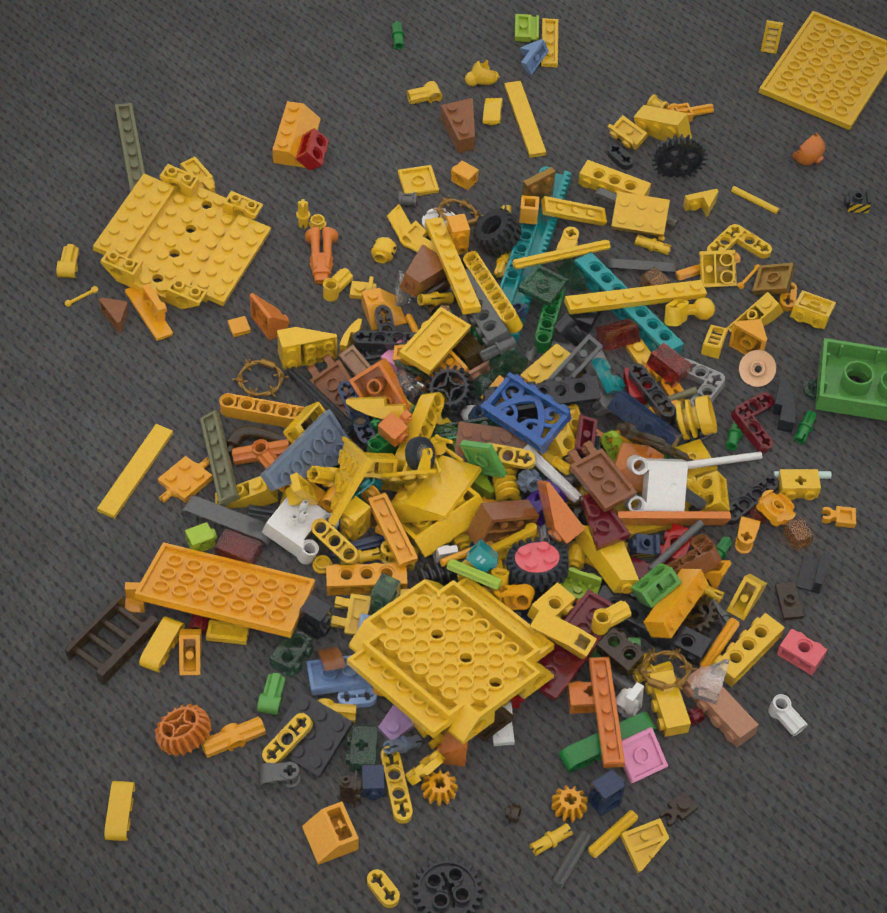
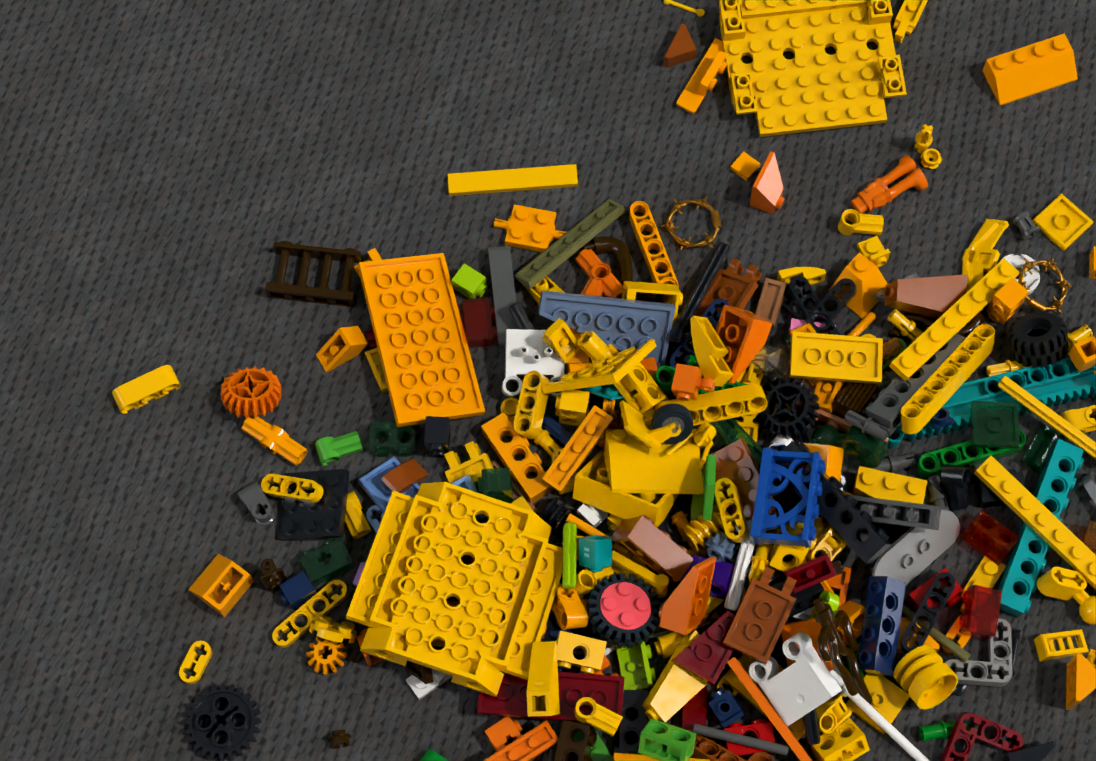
camera: 65 degrees right, 15 degrees up
(160, 644) = (331, 318): yellow beam -> none
(304, 346) = (747, 235): yellow slope -> none
(312, 149) = (1020, 92): red brick -> none
(383, 250) = (939, 242): yellow head -> none
(402, 744) = (341, 590): sand blue pin -> none
(611, 383) = (910, 559): teal plate -> none
(751, 361) = (1040, 706): light nougat dish -> none

